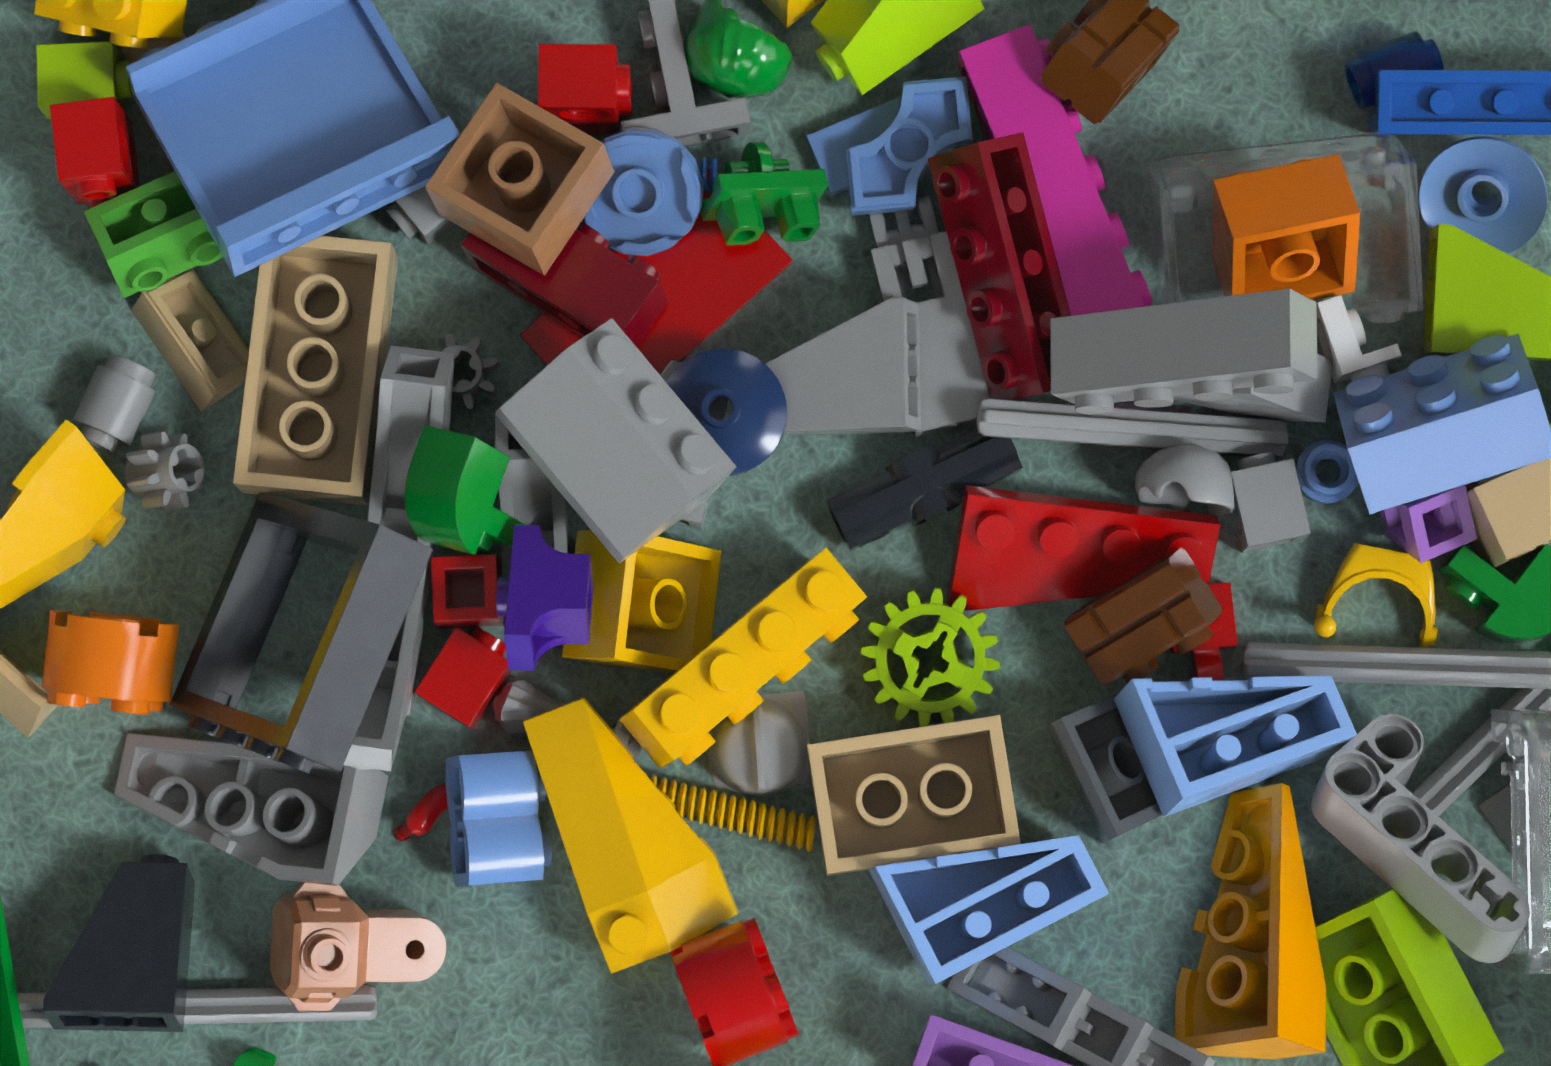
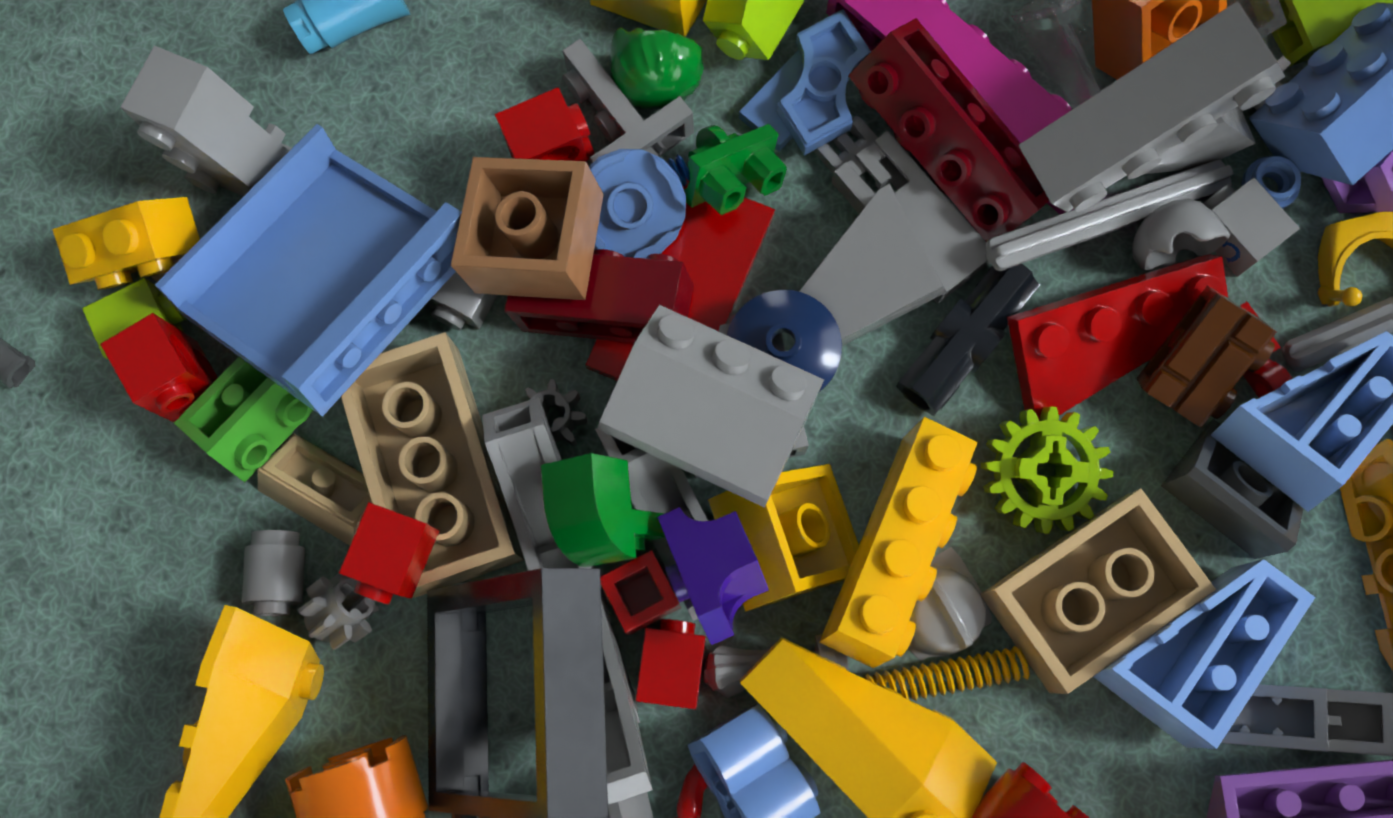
camera: 20 degrees left, 5 degrees down
(242, 442) = (388, 554): none -> red brick

